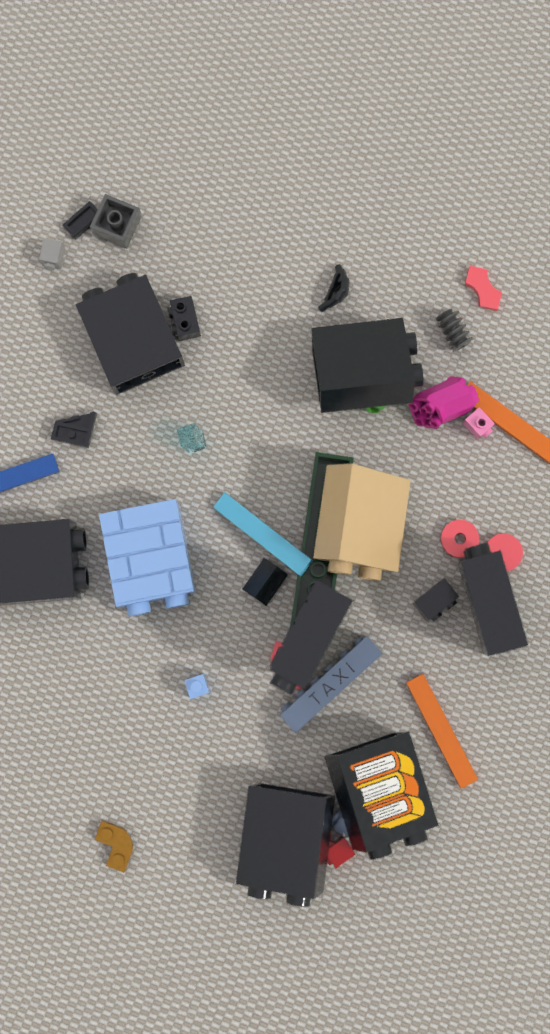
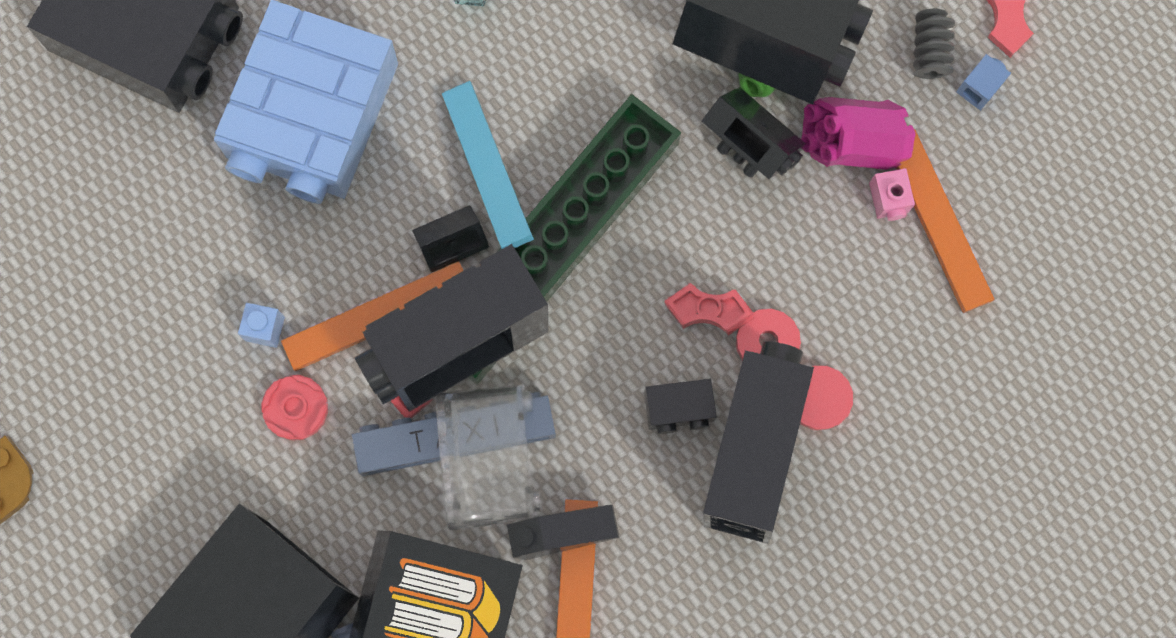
camera: 20 degrees right, 5 degrees down
(239, 717) = (294, 407): none -> coral tile
(252, 645) = (347, 328): none -> orange tile
(356, 685) = (485, 456): none -> clear windscreen
(361, 521) = (638, 222): tan brick -> none
(391, 435) = (753, 135): none -> black piece
(416, 700) = (562, 532): none -> black slope
(428, 537) = (724, 310): none -> coral tile
(491, 334) = (983, 81): none -> medium blue brick

